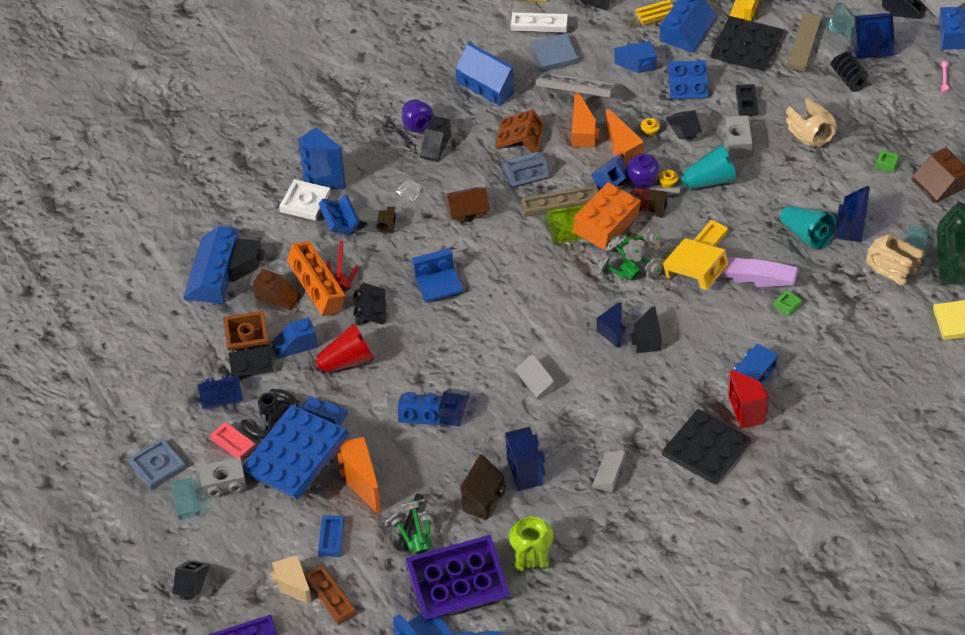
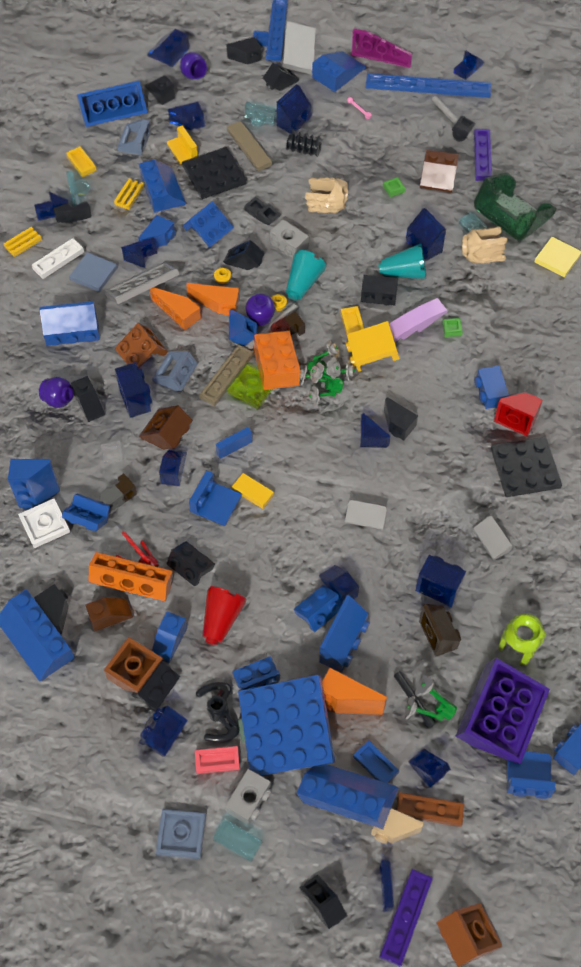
camera: 50 degrees left, 10 degrees up
(240, 606) = (386, 886): none -> clear blue tile
(283, 528) = (348, 794): none -> blue slope
(361, 570) = (429, 767): none -> clear blue slope
(409, 433) = (344, 635): none -> blue slope
(437, 231) = (172, 467): none -> clear blue slope
(471, 155) = (133, 389): none -> clear blue brick
(475, 295) = (253, 491): none -> yellow tile
(501, 250) = (234, 442): none -> blue tile
(604, 59) = (137, 251): none -> clear blue slope
(761, 228) = (379, 290): none -> black brick

